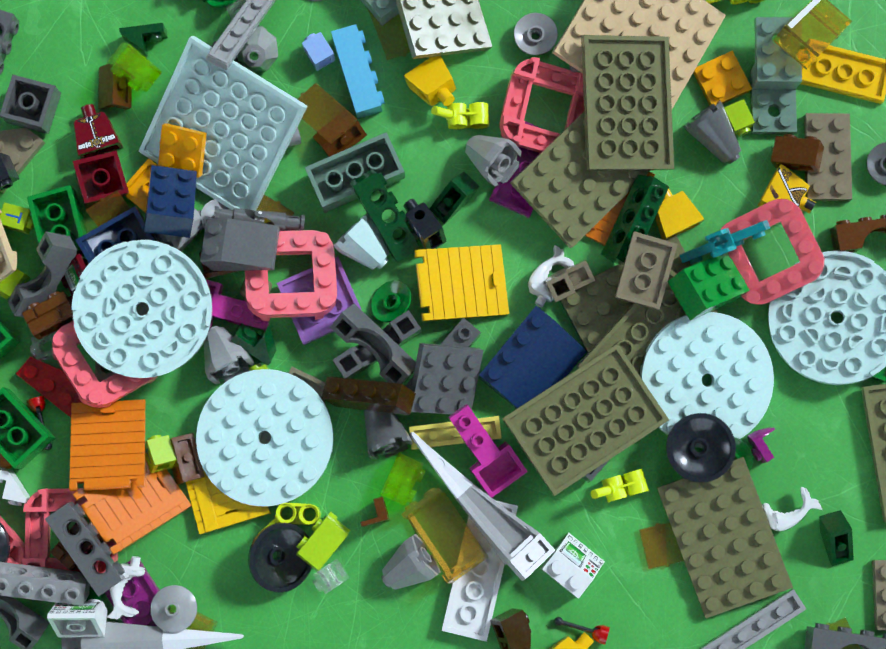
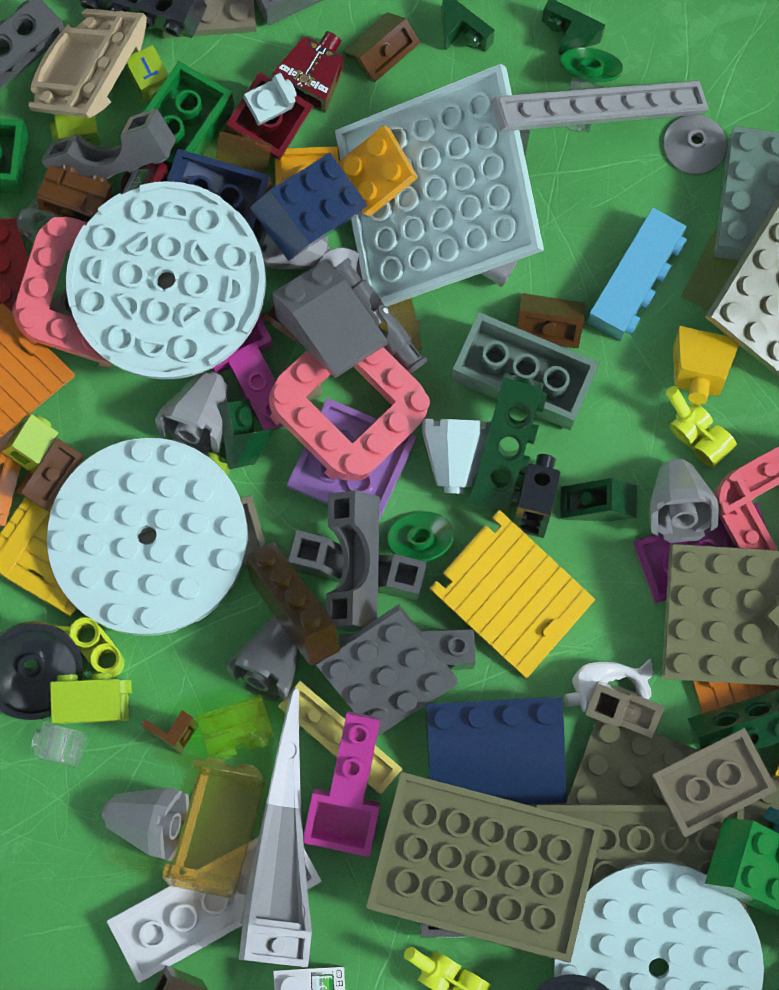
camera: 45 degrees right, 5 degrees down
(93, 168) = (271, 99): none -> light aqua bracket
(133, 67) = (419, 44): clear neon green brick -> none
(264, 45) = (568, 155): light grey cone -> none
(318, 50) = (620, 214): light blue brick -> none
(325, 114) = (558, 282): clear orange piece -> none

